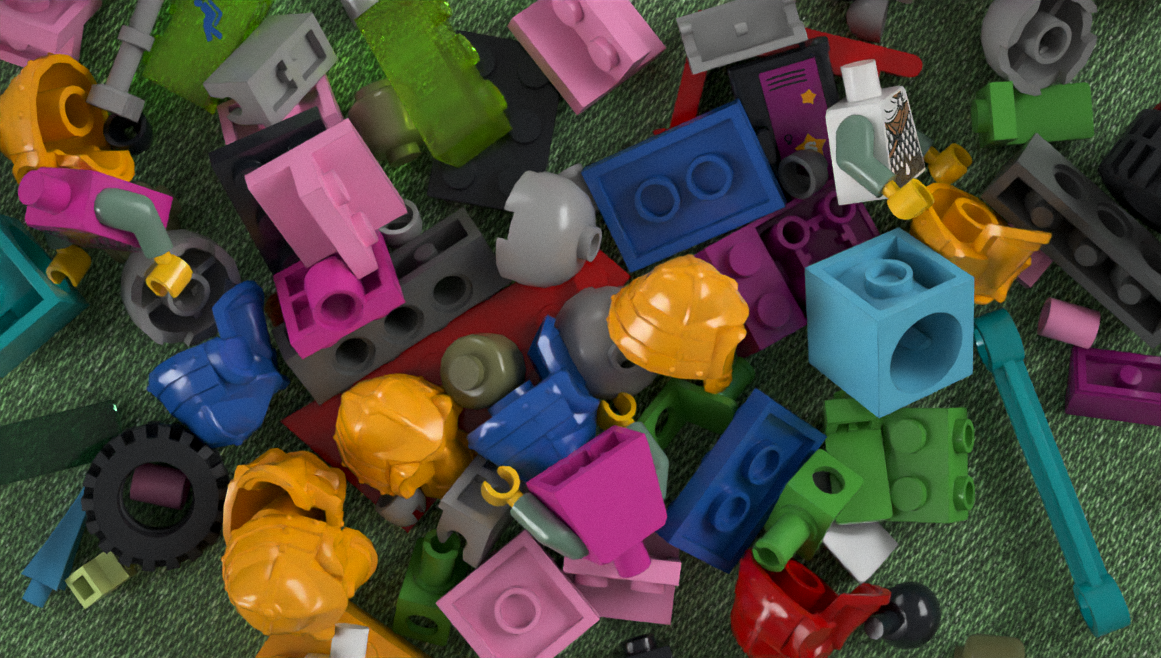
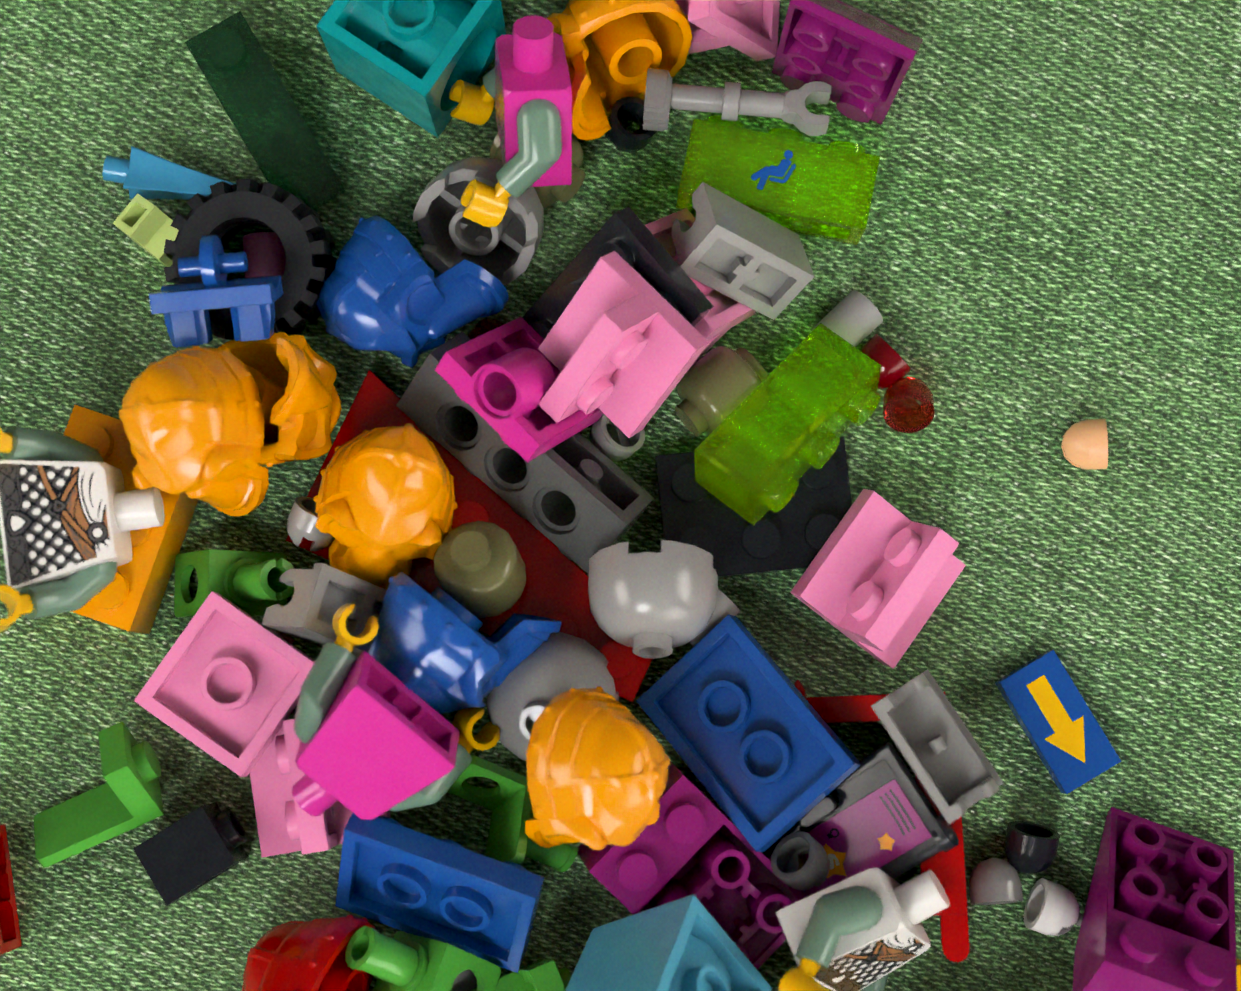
camera: 75 degrees right, 5 degrees down
(181, 555) = (188, 304): none -> blue hips

